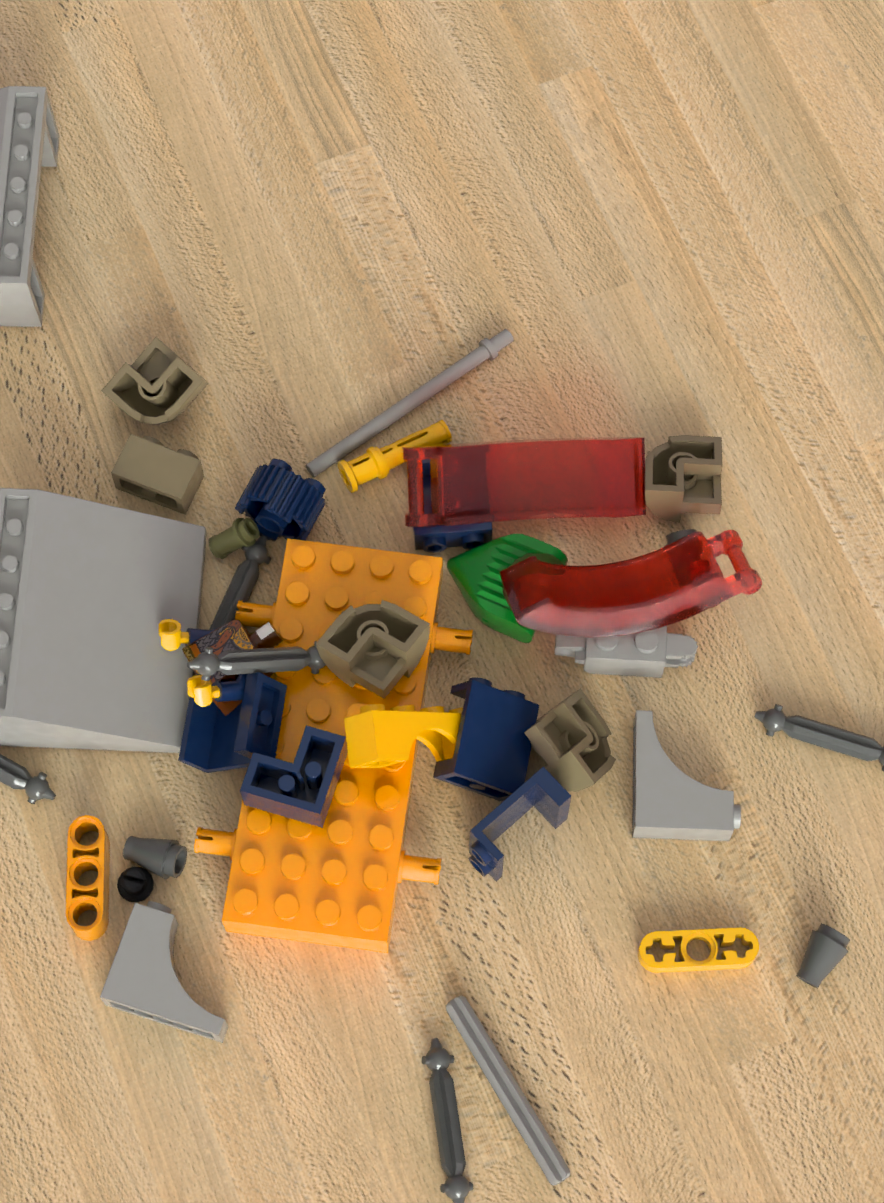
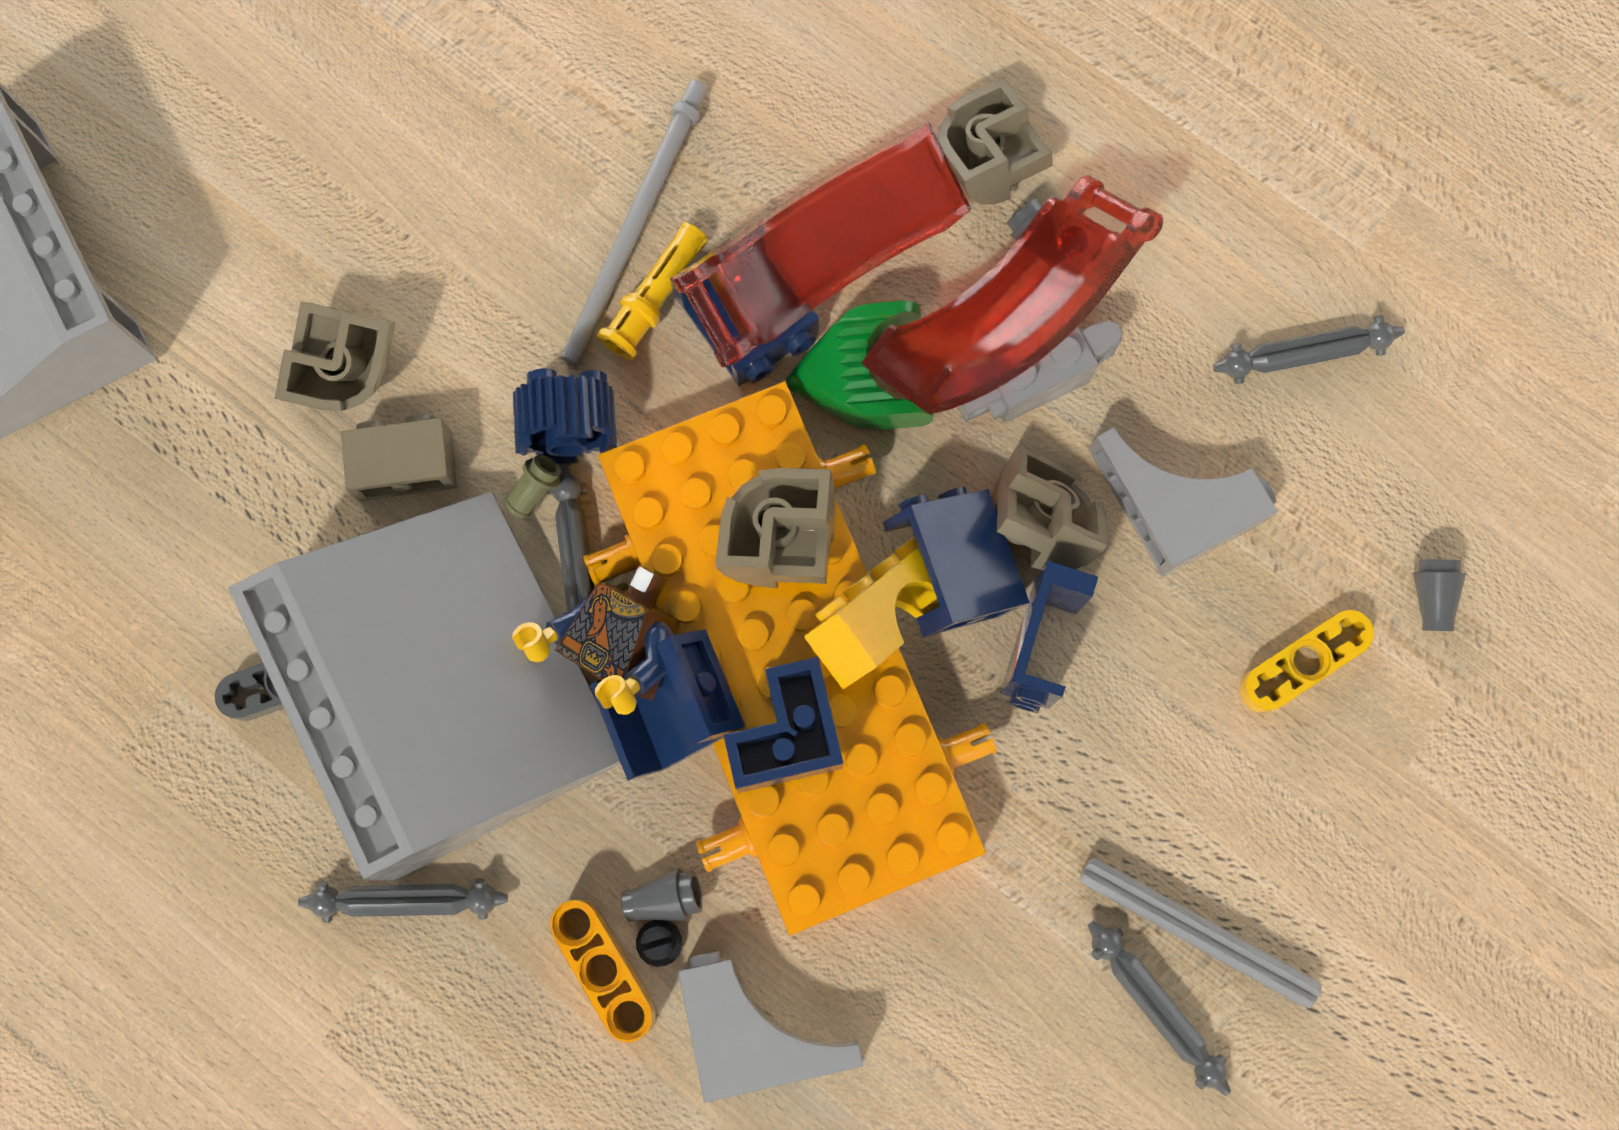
camera: 30 degrees left, 10 degrees up
(256, 660) = (659, 624): dark grey wheel -> none

